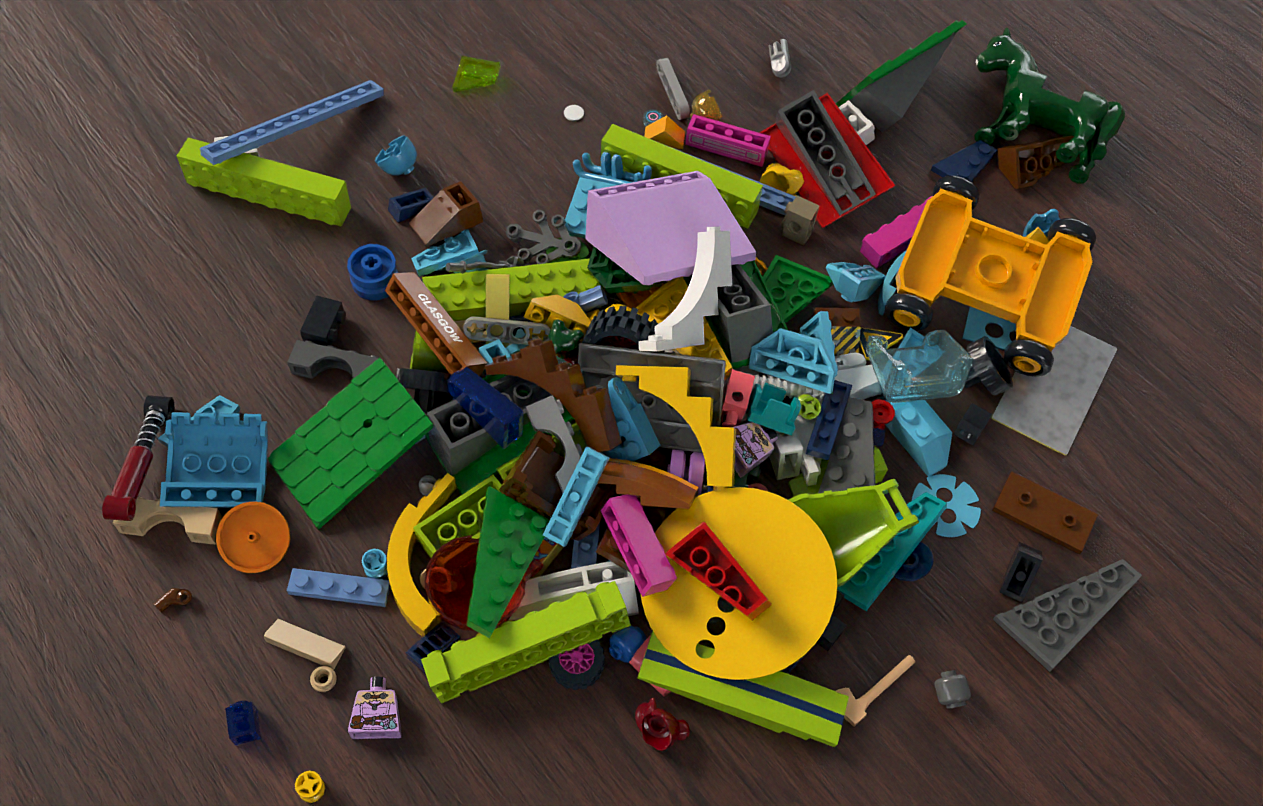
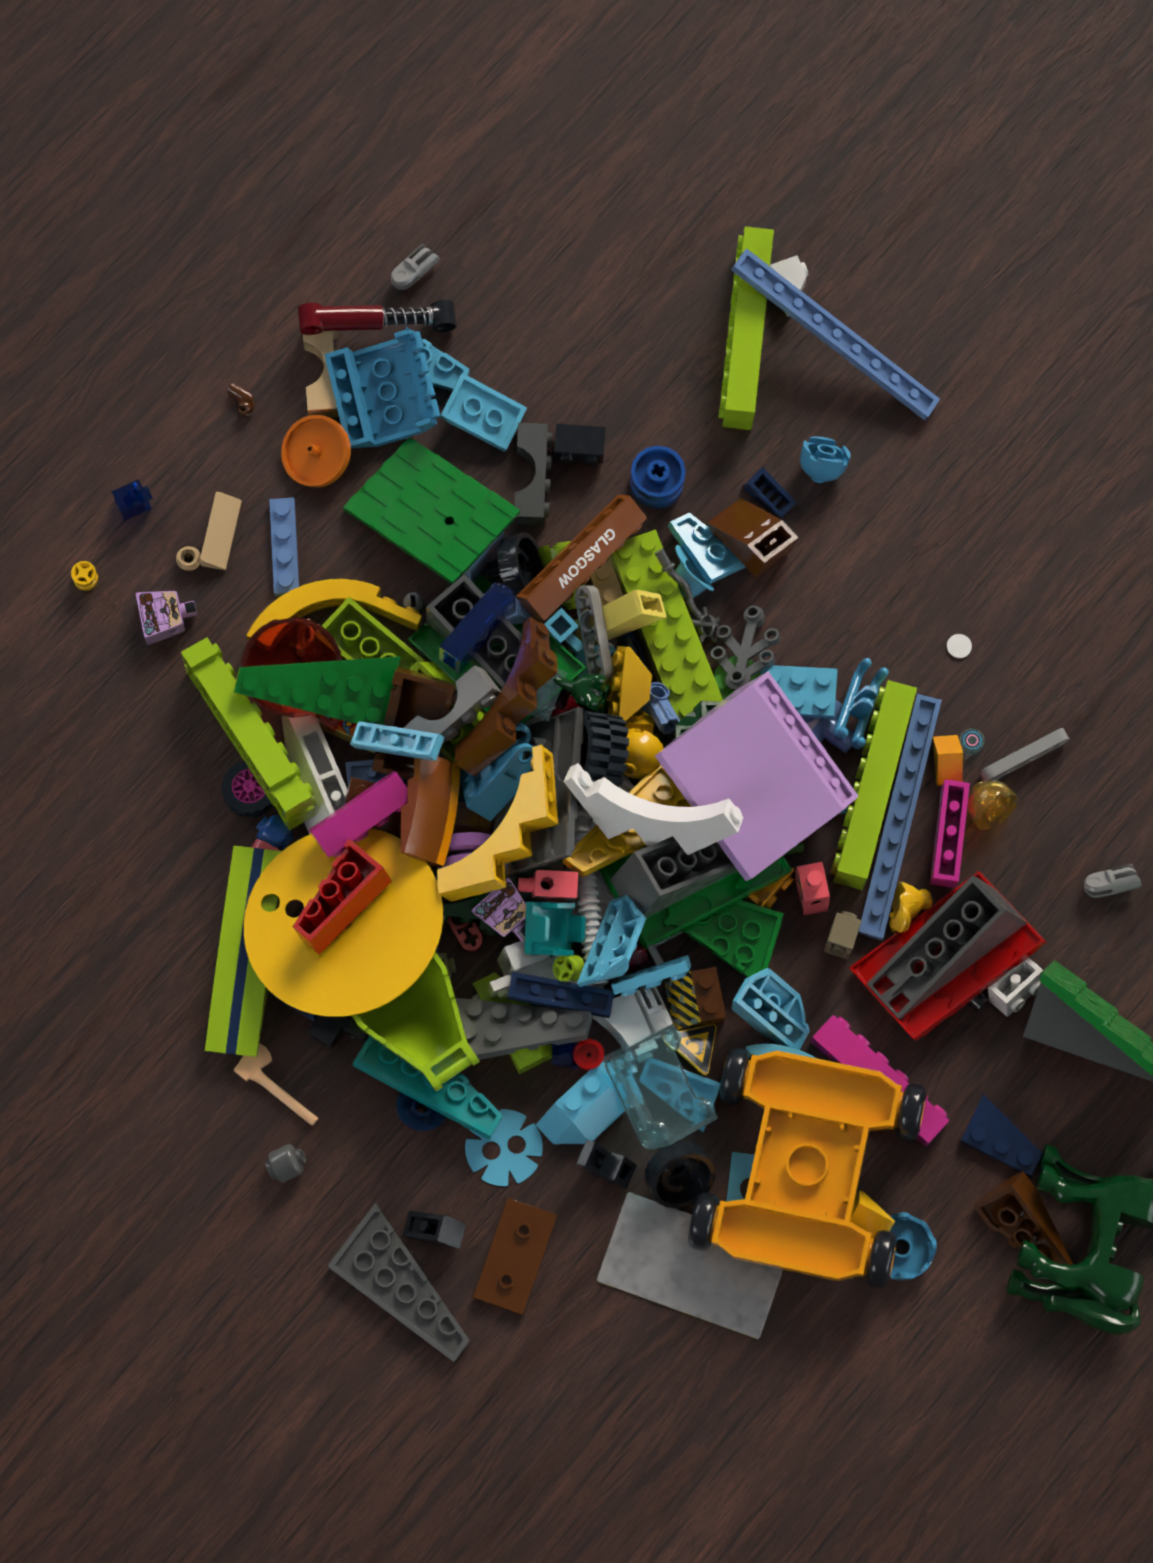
camera: 80 degrees right, 15 degrees up
(102, 425) = (413, 267): none -> light grey arm
(266, 390) = (483, 412): none -> medium azure plate
(373, 559) = (310, 568): medium azure wheel -> none
(413, 653) = (234, 637): dark blue slope -> none
(475, 73) = (984, 516): clear neon green wing -> none
(659, 726) = (194, 880): dark red hair -> none
(758, 231) = (811, 887): none -> coral torso

